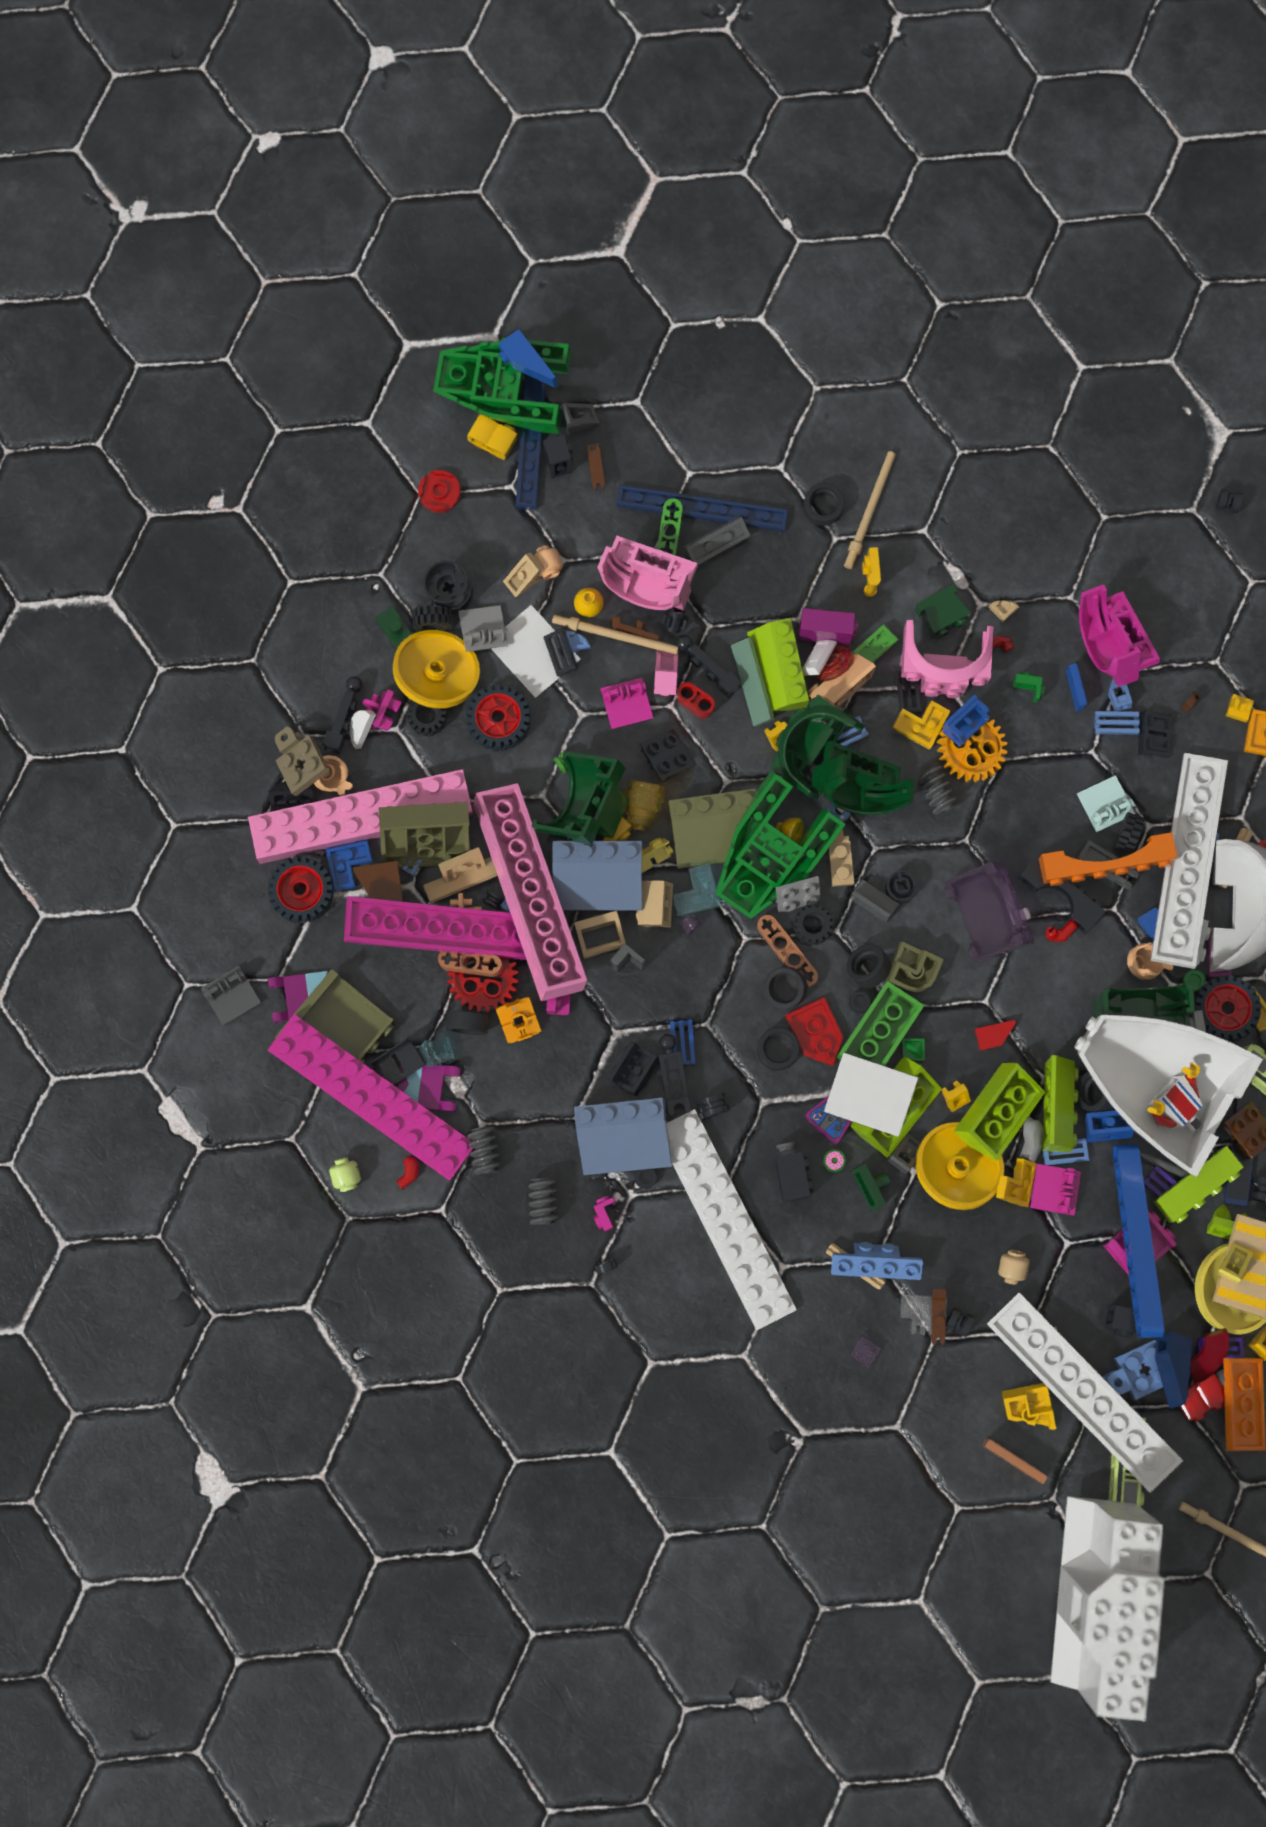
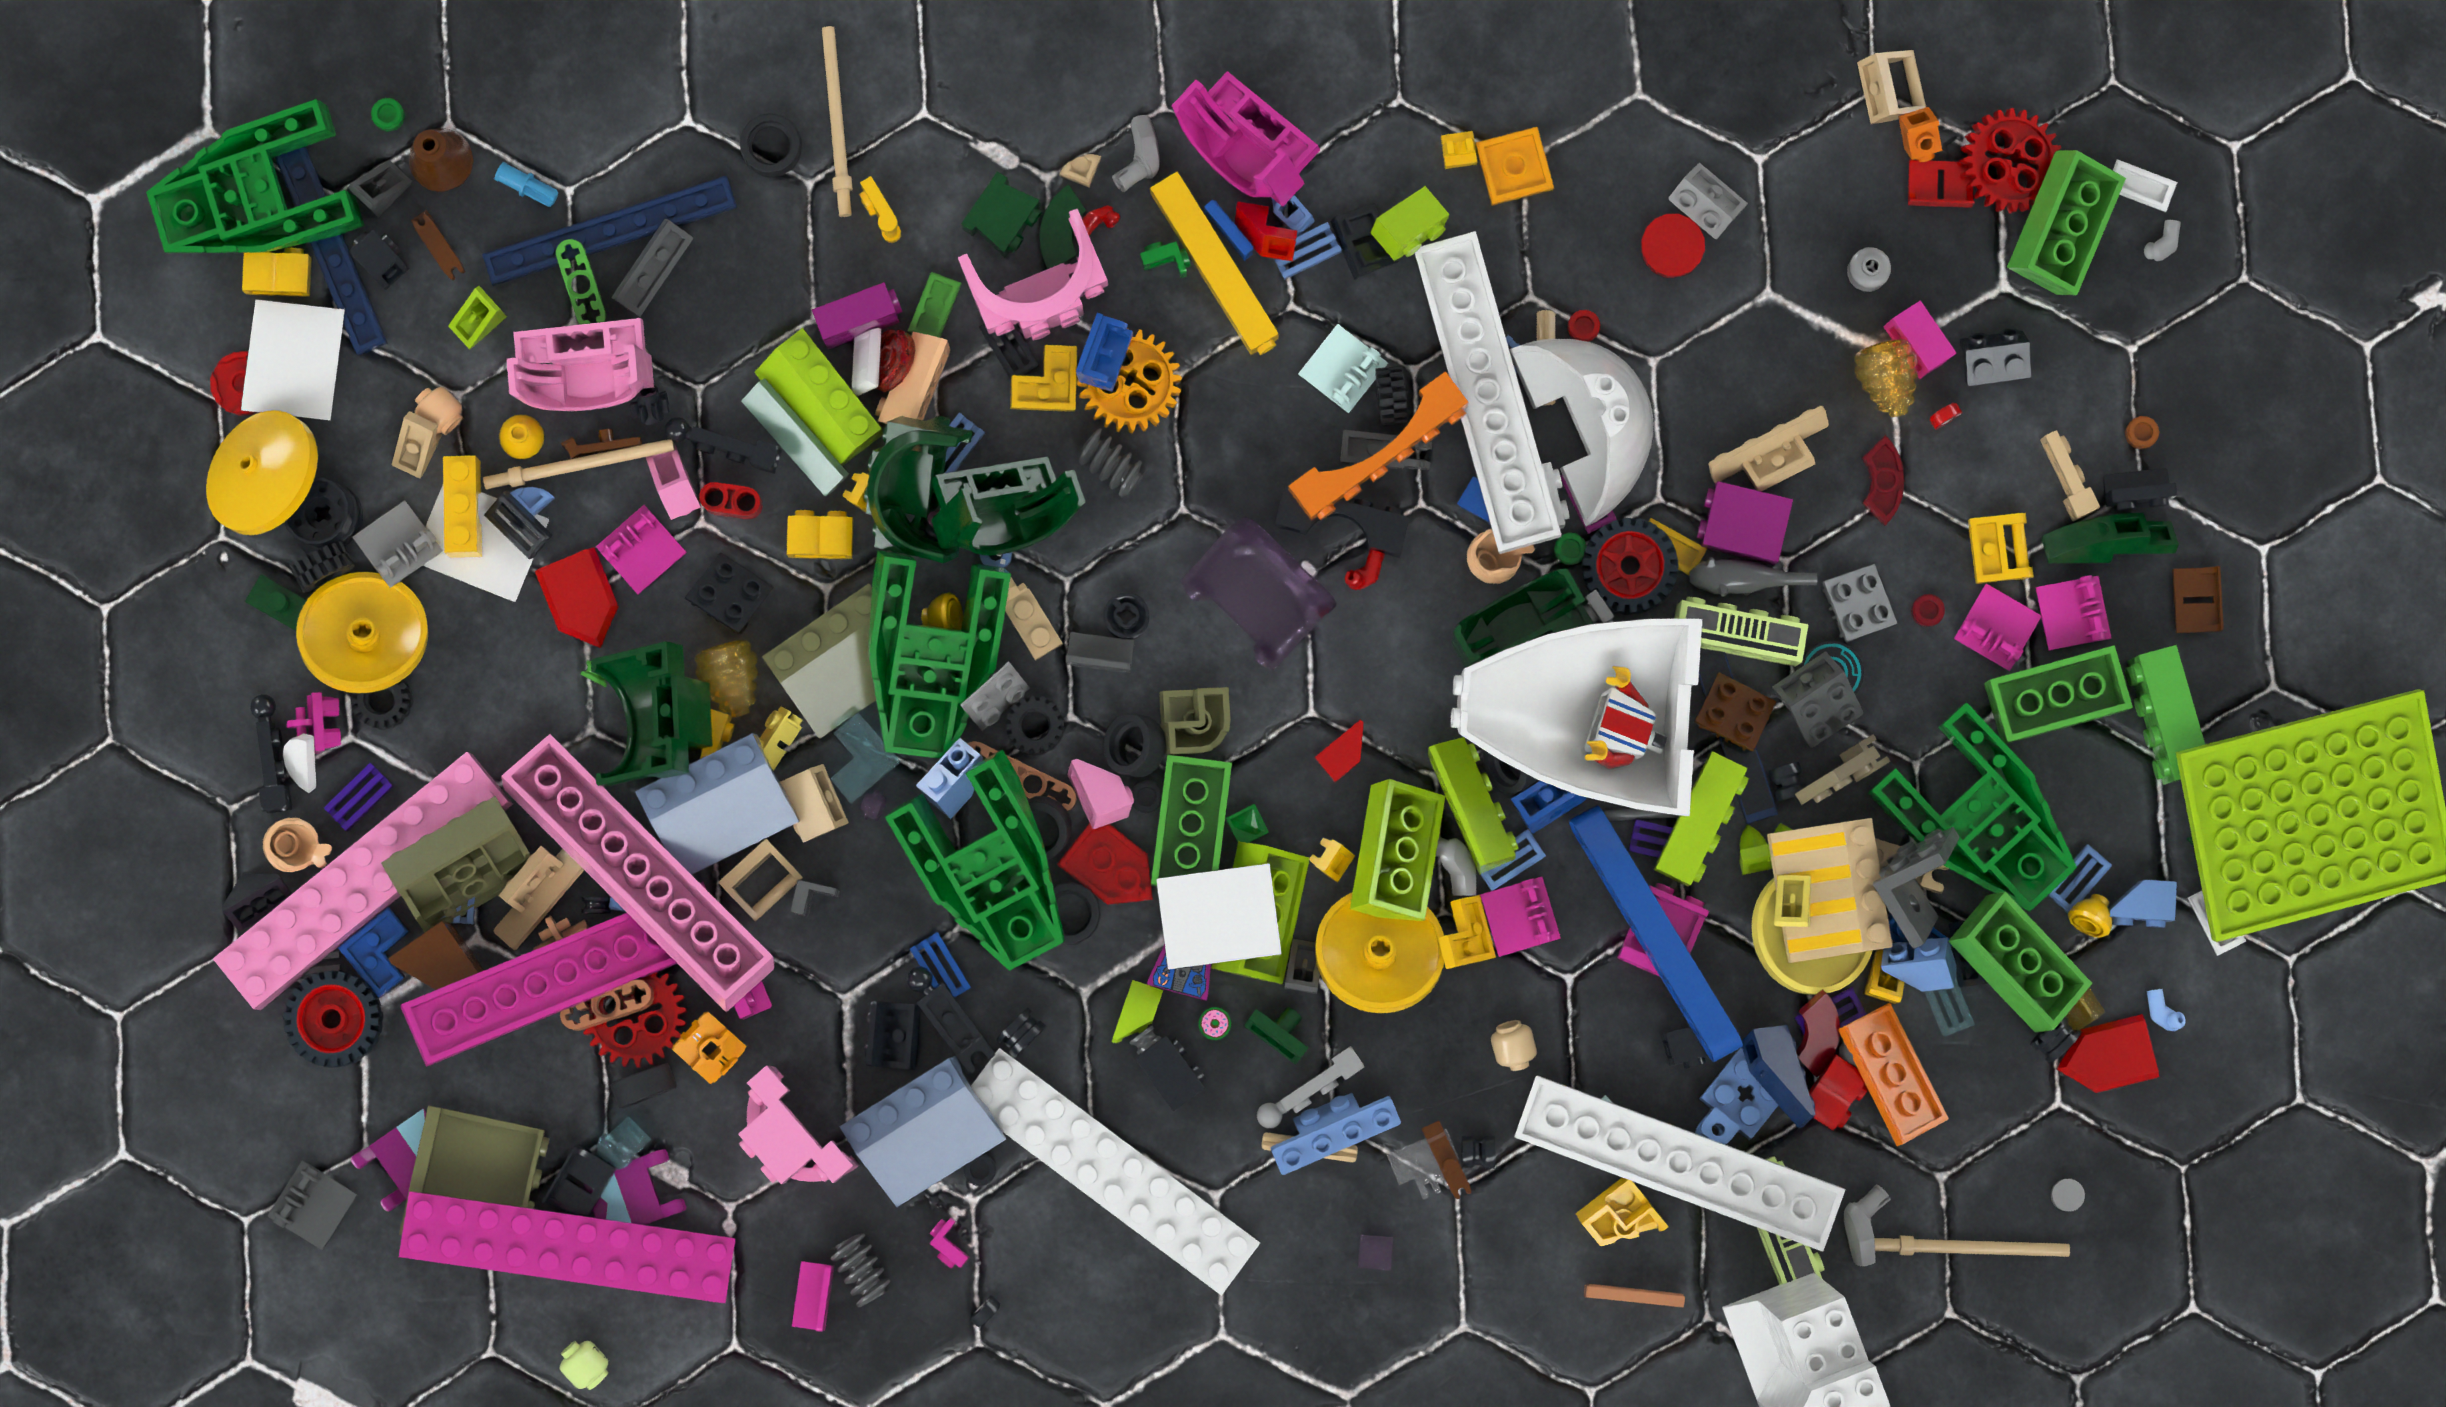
camera: 25 degrees left, 5 degrees up
(295, 751) = (231, 837): dark tan plate -> none
(377, 759) = (349, 788): none -> dark purple tile
(411, 1172) = (669, 1318): red arm -> none
(424, 545) = (261, 472): none -> yellow dish
(476, 491) = (293, 359): none -> white sticker
(483, 1150) = (750, 1242): dark grey piece -> none
(498, 701) = (453, 655): wheel -> none
(505, 1203) = (813, 1296): none -> dark pink panel
(525, 359) = (265, 150): blue slope -> none
(532, 624) = (461, 515): none -> yellow arch
(537, 1097) = (782, 1139): none -> bright pink piece
(575, 712) = (579, 596): none -> red tile
(598, 519) = (476, 318): none -> lime slope
(604, 377) = (387, 114): none -> green tile
(622, 417) = (440, 159): none -> reddish brown cone
(666, 457) = (526, 184): none -> dark azure axle
(738, 747) = (820, 535): none -> yellow brick
(745, 1006) = (996, 883): none -> green wedge
(747, 931) = (946, 781): none -> medium blue slope
(791, 1128) = (1137, 1010): none -> lime slope
(833, 985) = (1100, 793): none -> bright pink slope
(902, 1226) = (1345, 1065): none -> light grey plate
(972, 637) = (1055, 228): none -> dark green tile
(1047, 619) = (1146, 155): none -> light grey arm
(1058, 703) = (1215, 264): none -> yellow brick
(1098, 704) = (1266, 240): none -> red slope
(1178, 1488) = (1859, 1228): none -> light grey arm
(1190, 702) = (1389, 173): reddish brown tile -> none
(1190, 736) = (1410, 224): none -> lime brick

